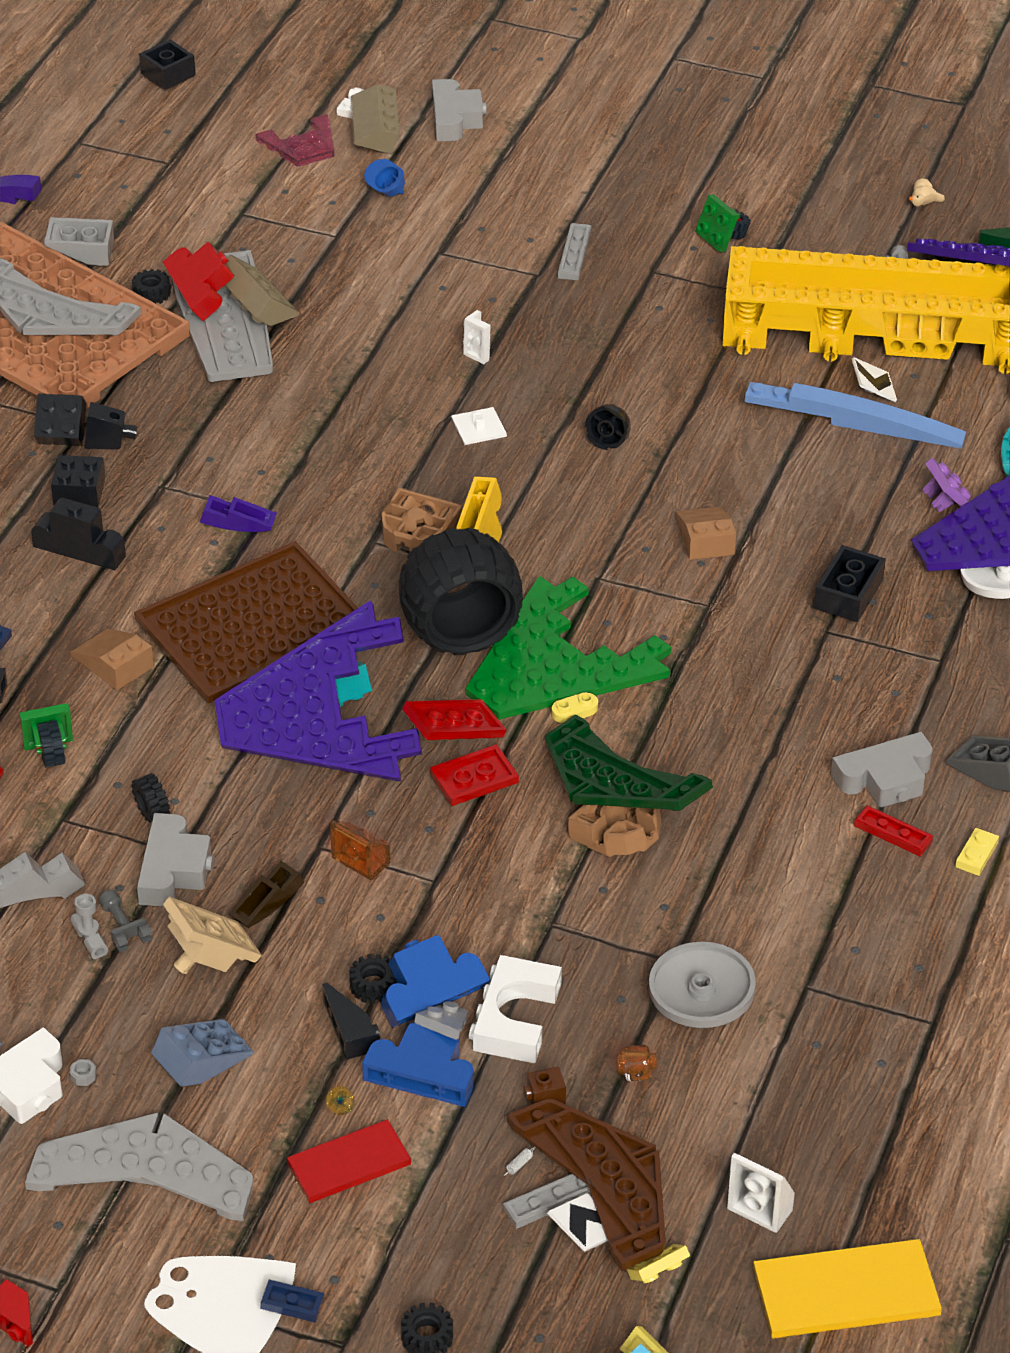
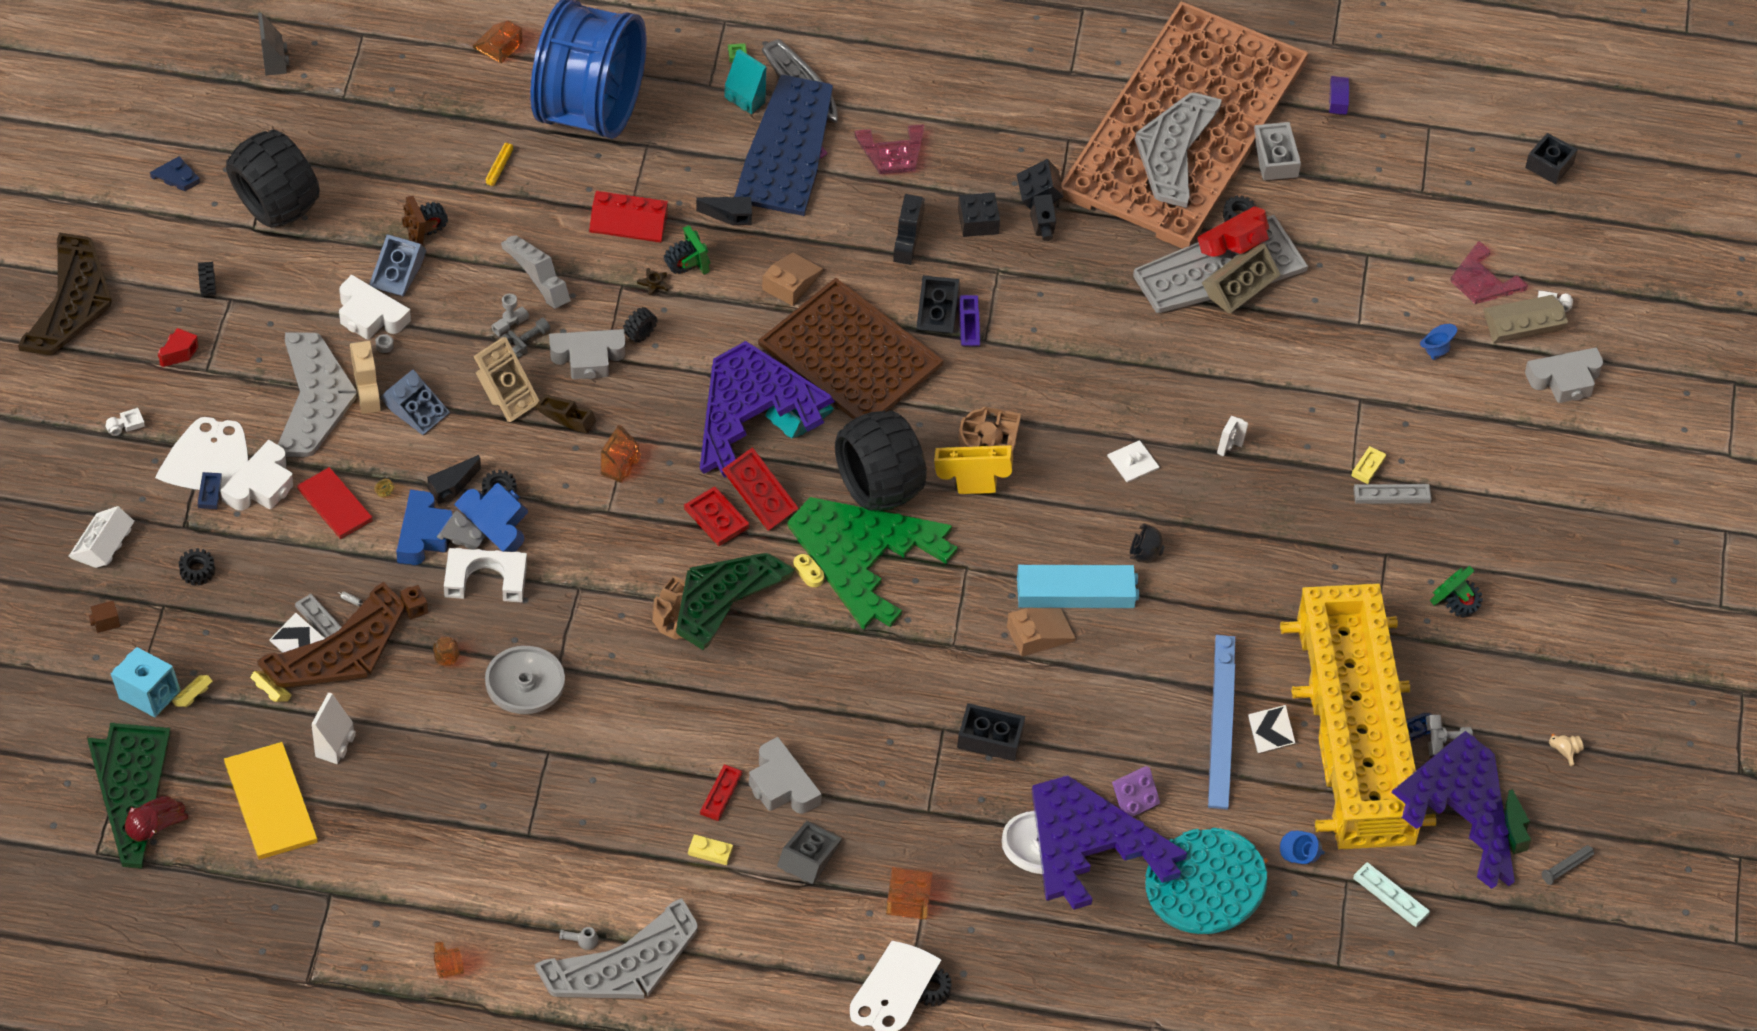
camera: 75 degrees right, 10 degrees up
(70, 784) = (653, 281): none -> dark brown animal
(137, 1088) = (365, 376): none -> tan brick
(204, 535) = (938, 304): none -> black slope
(288, 1236) = (260, 479): none -> white brick
(535, 257) = (1368, 465): none -> light yellow plate
(651, 491) = (1077, 586): none -> medium azure brick

